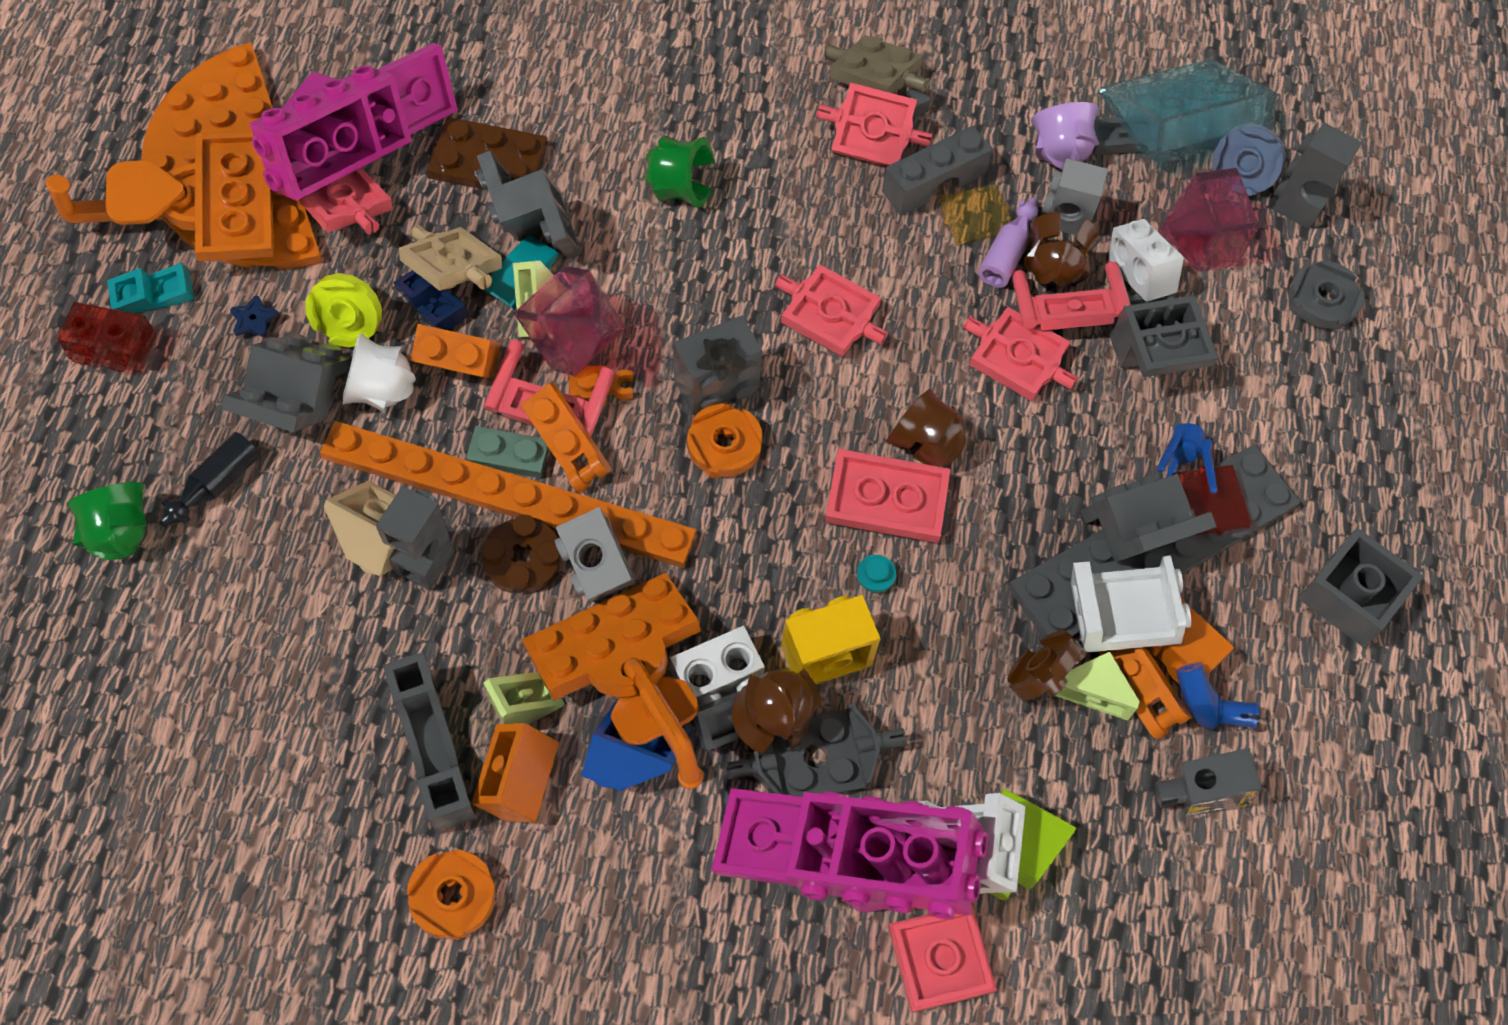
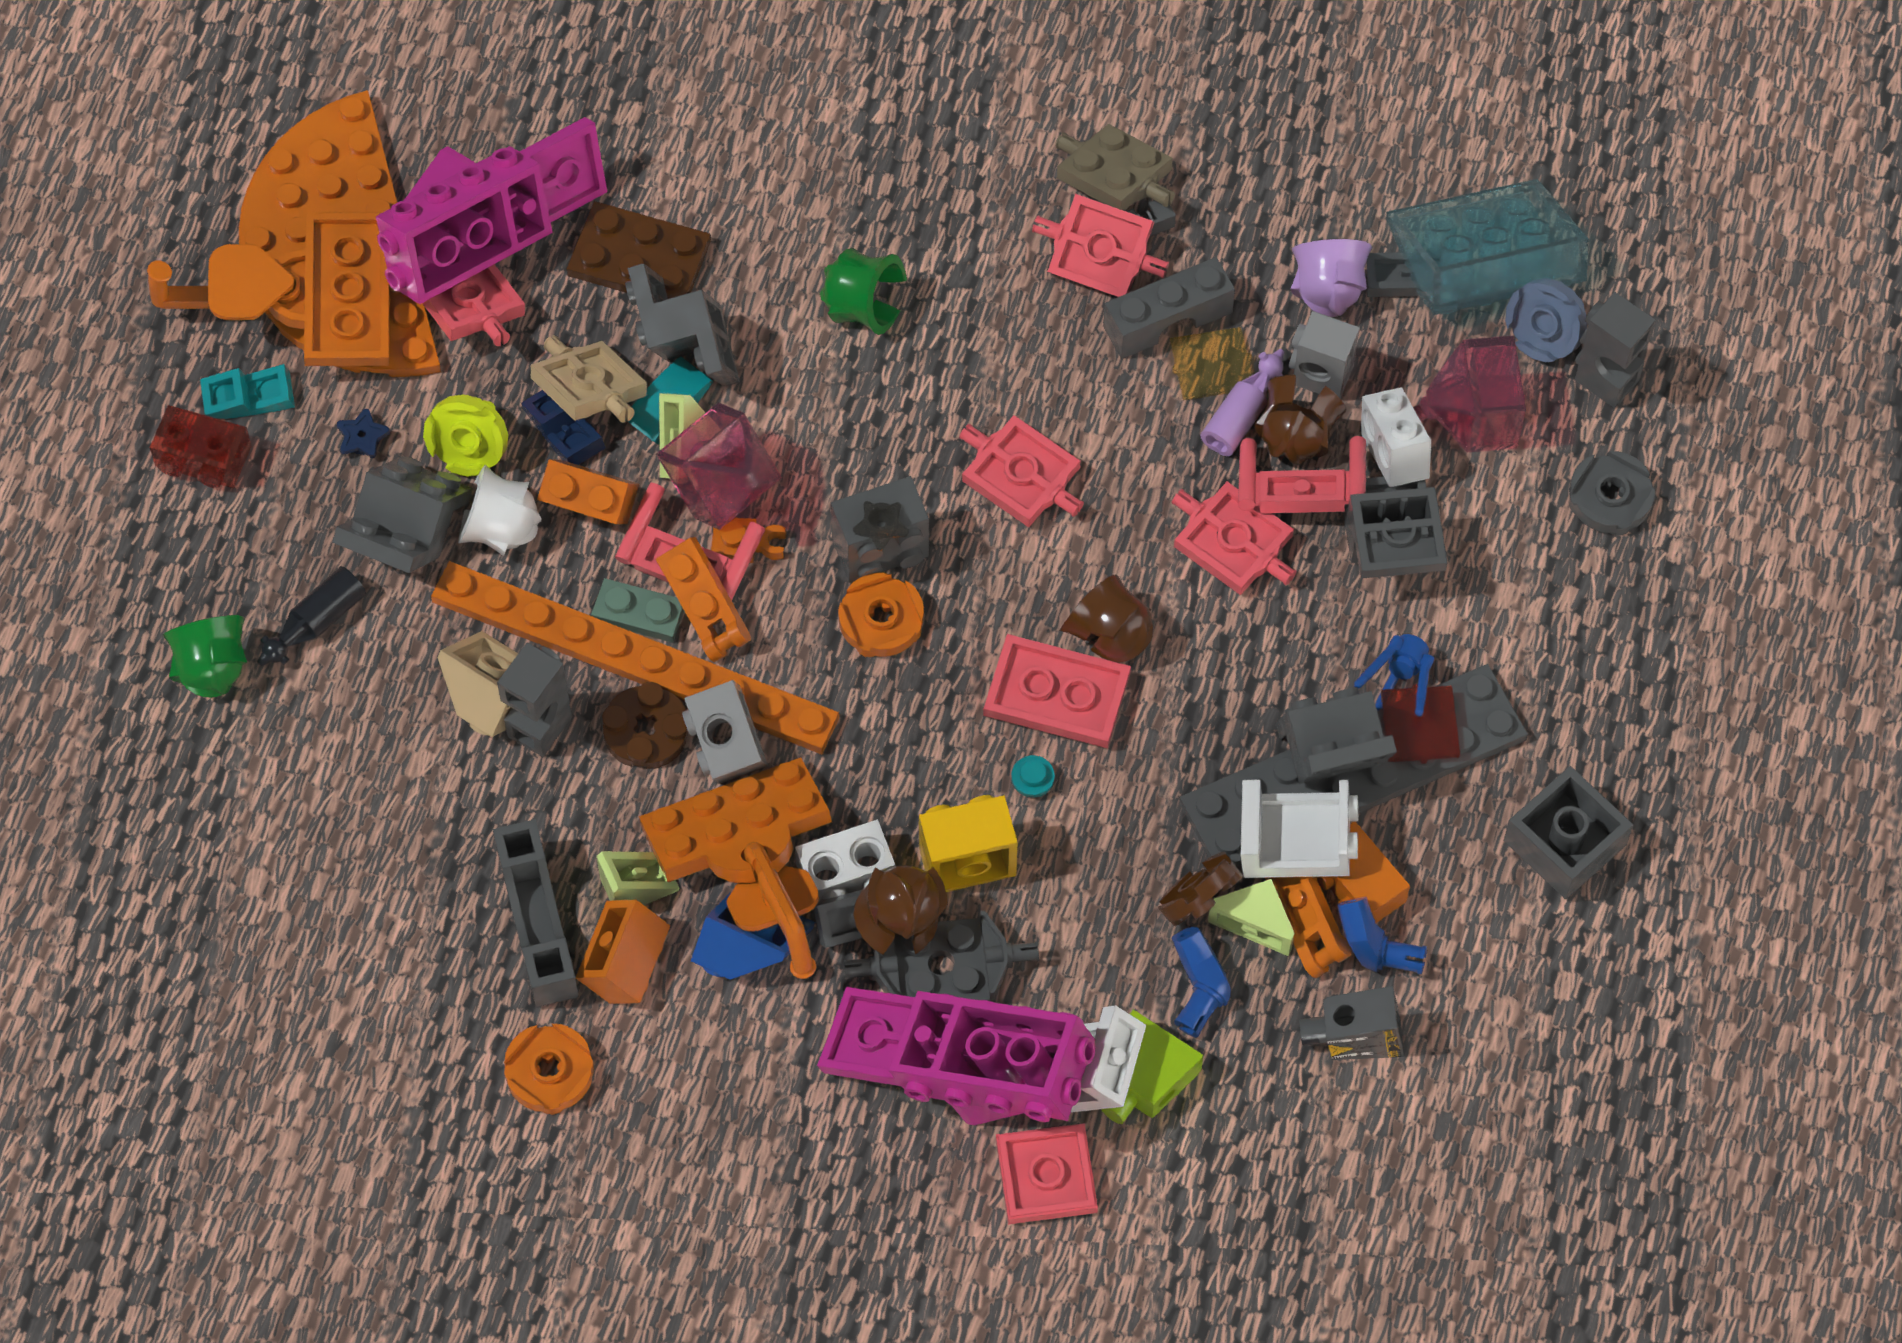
camera: 10 degrees right, 0 degrees up
(1060, 747) = (1206, 976): none -> blue arm

